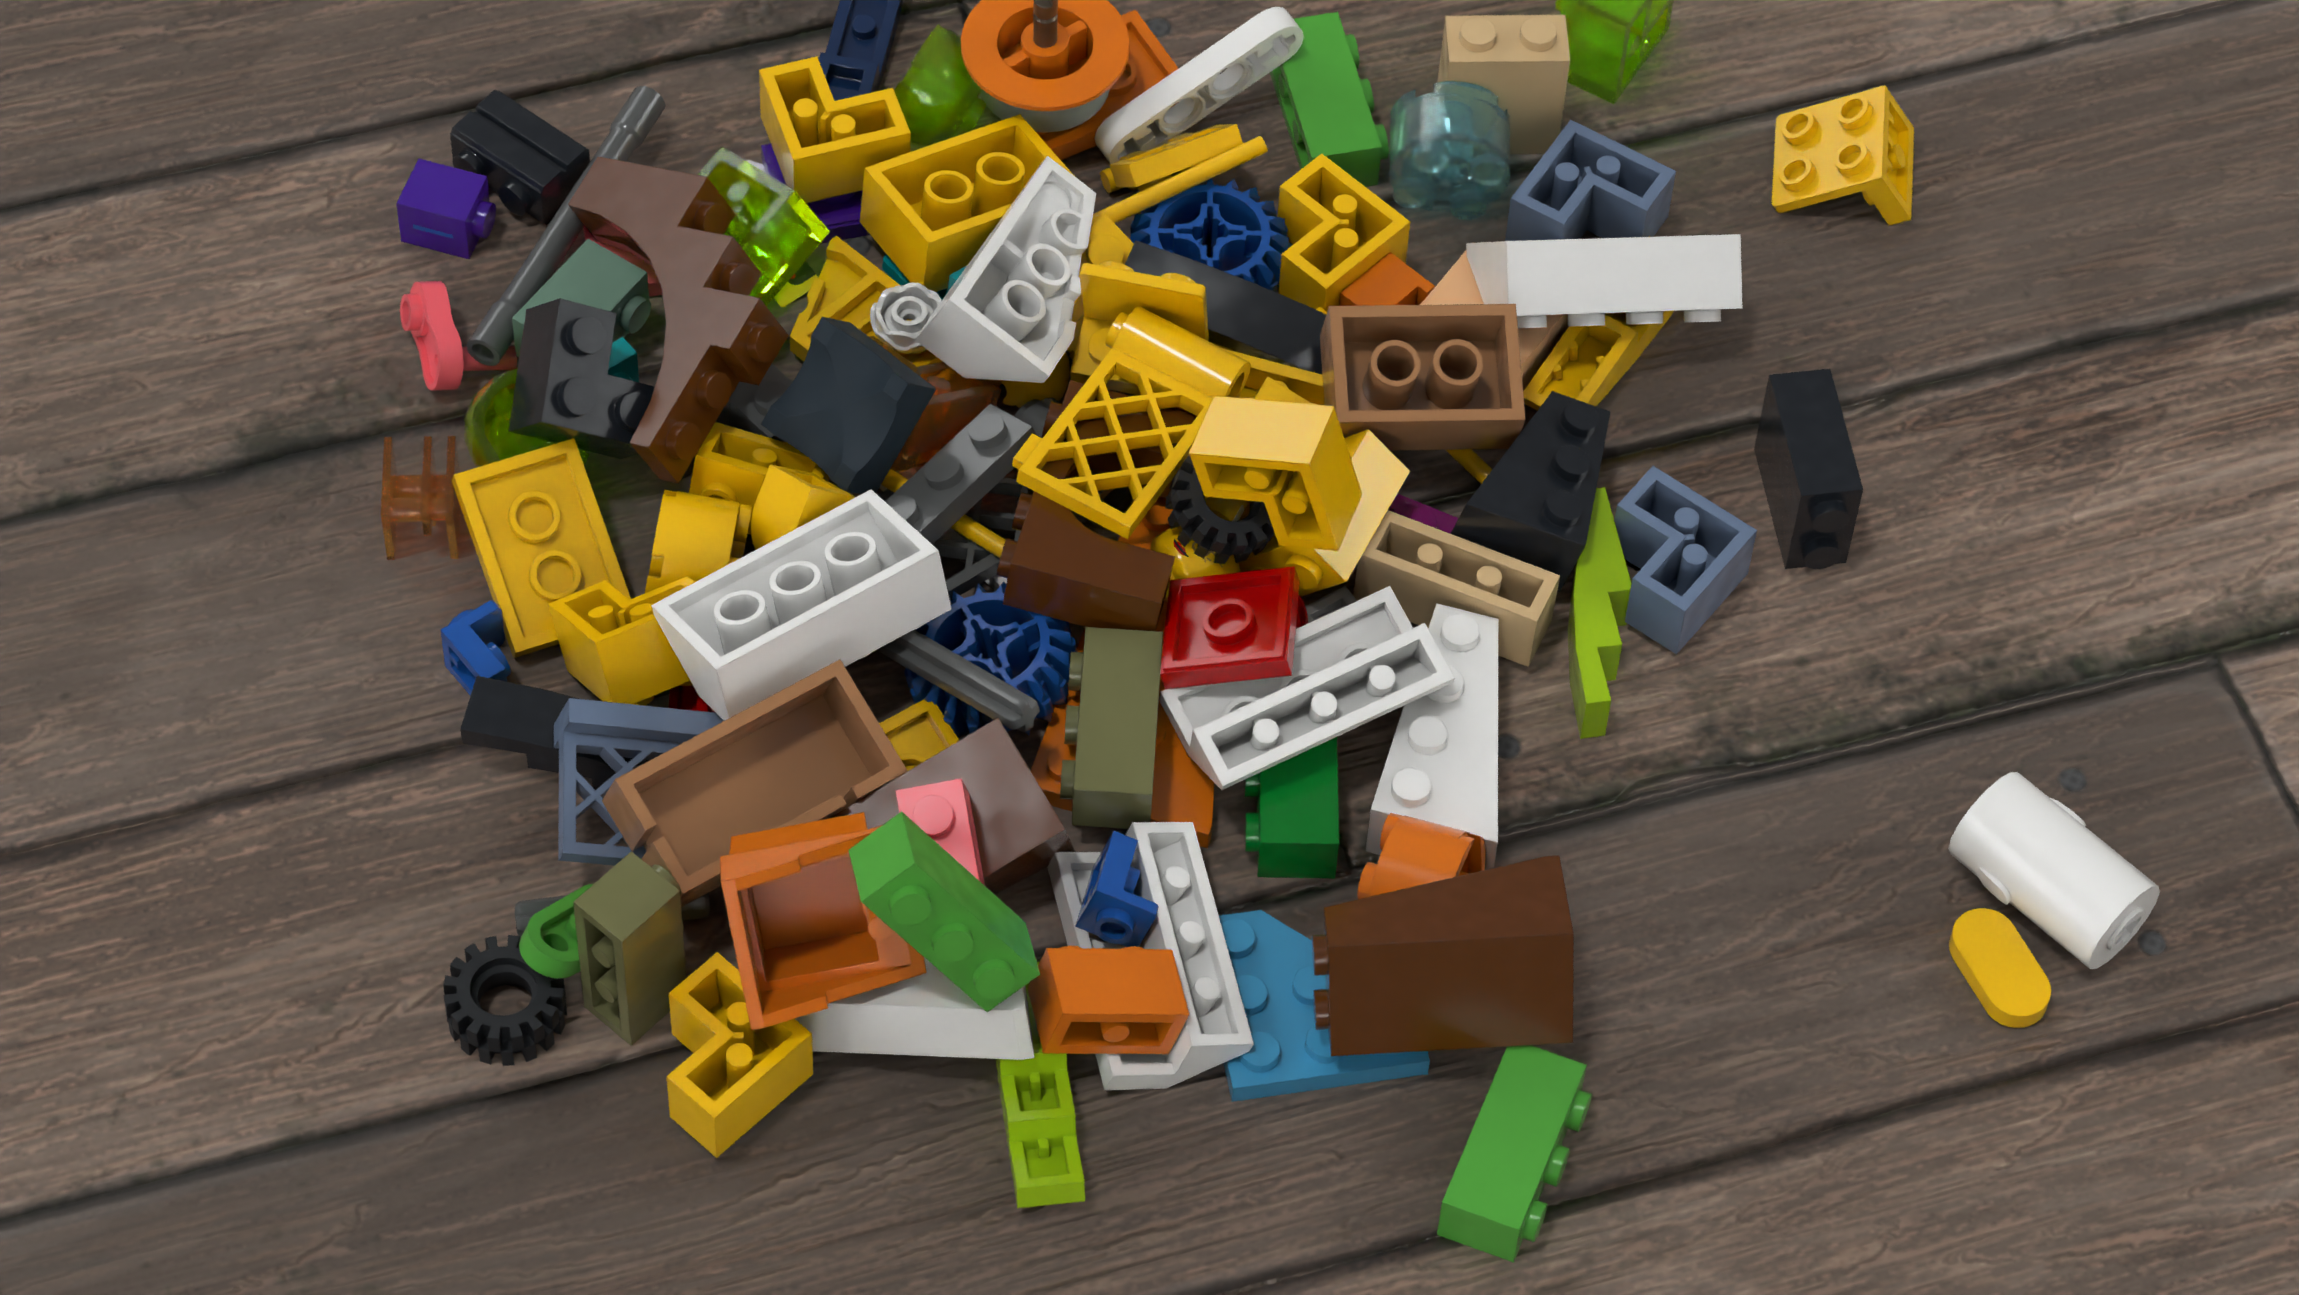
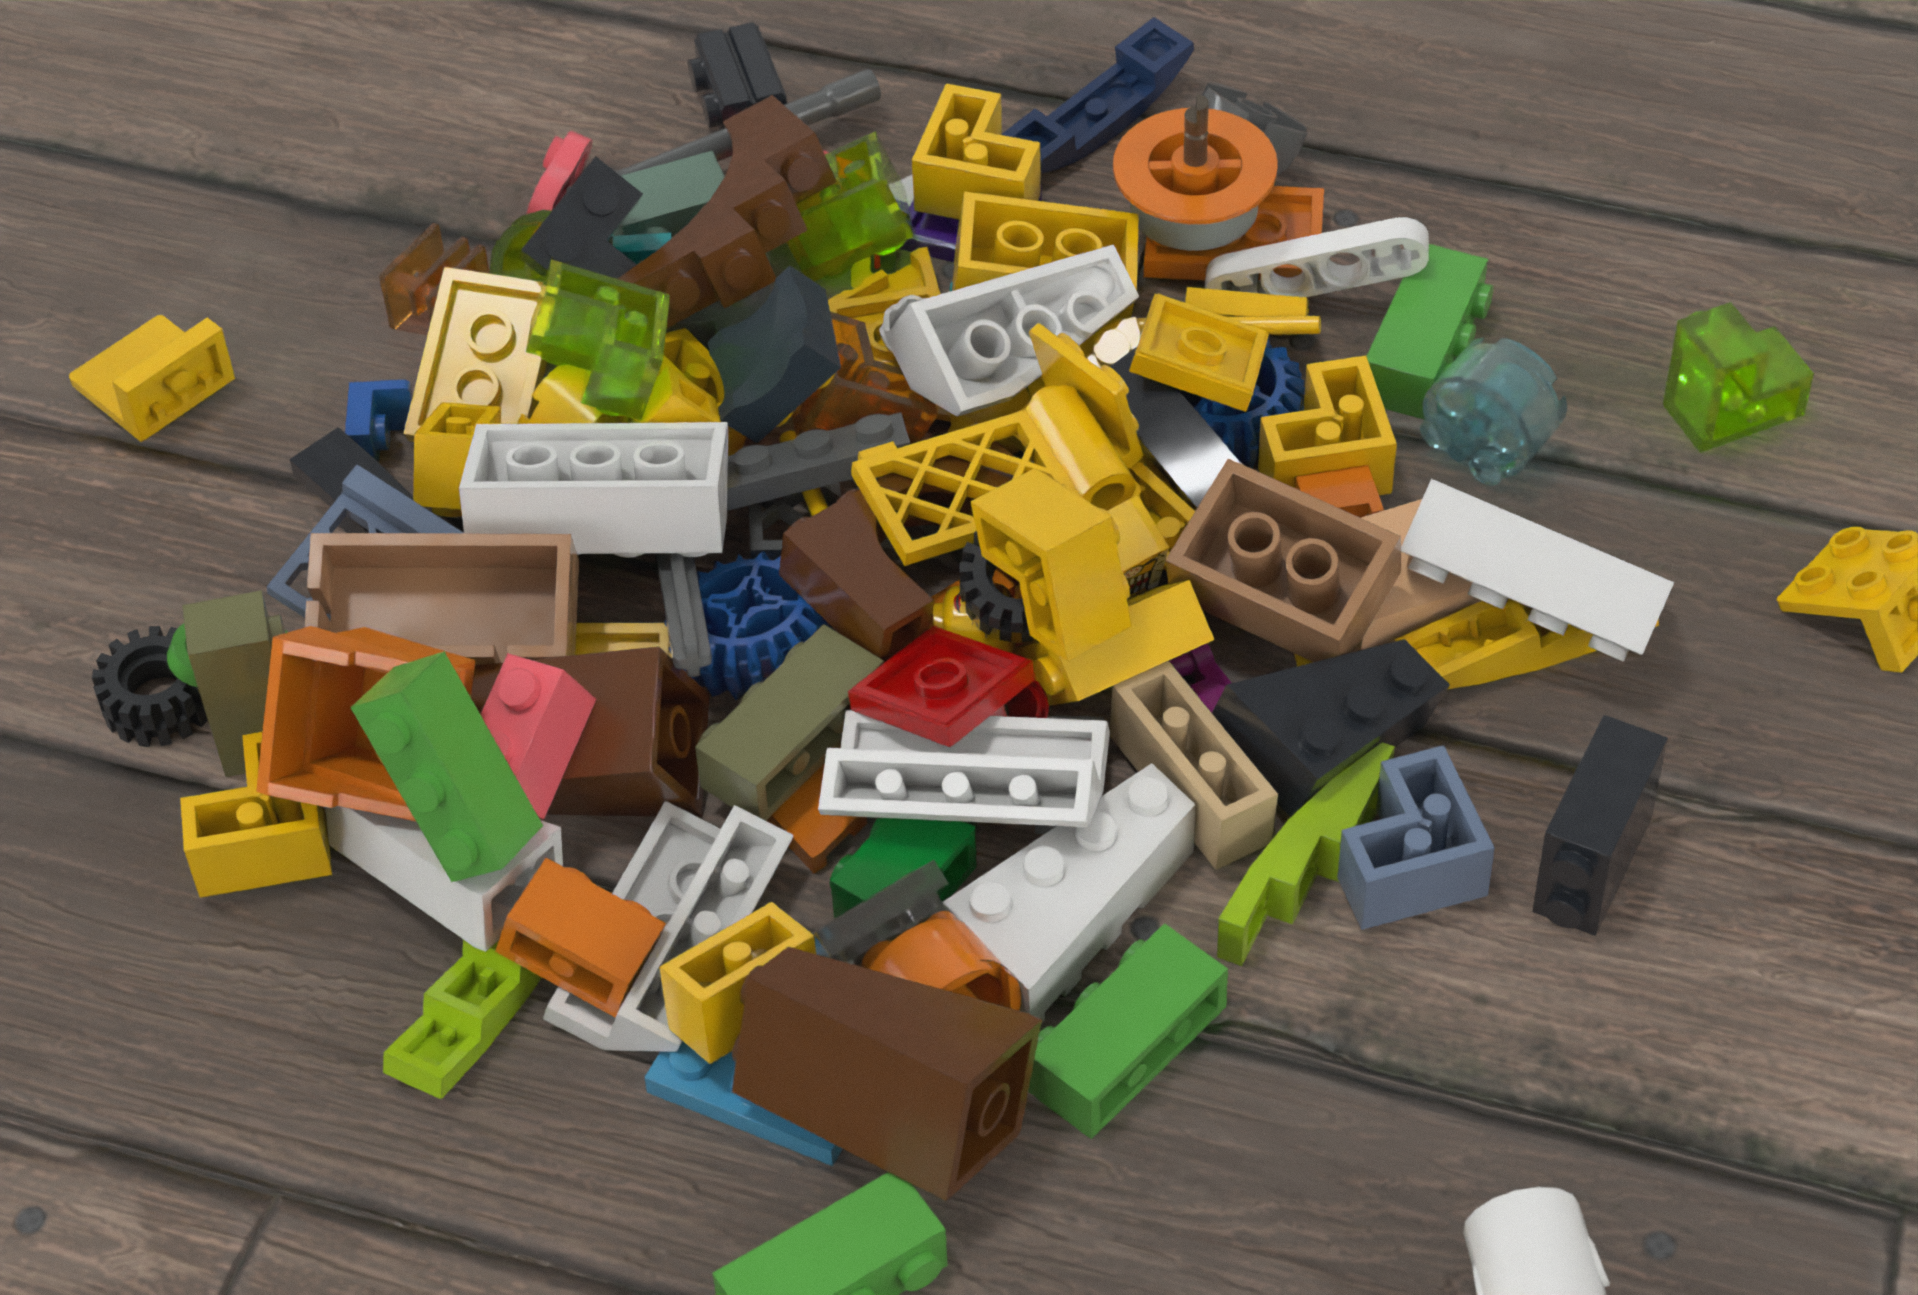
camera: 40 degrees right, 5 degrees down
(219, 718) = (156, 374): none -> yellow bracket
(445, 209) = (650, 94): dark purple brick -> none
(702, 458) = (607, 330): none -> clear neon green brick
(938, 91) = (1084, 169): clear neon green cylinder -> none
(1109, 901) = (668, 853): blue bracket -> none
(1191, 219) = (1200, 352): none -> yellow plate
(1273, 966) = (707, 980): none -> yellow brick
(1345, 845) = (882, 915): none -> clear smoke bracket
(1518, 61) = (1599, 367): tan brick -> none
(1579, 820) = (1127, 1029): none -> bright green brick
(1591, 187) = (1594, 495): sand blue brick -> none

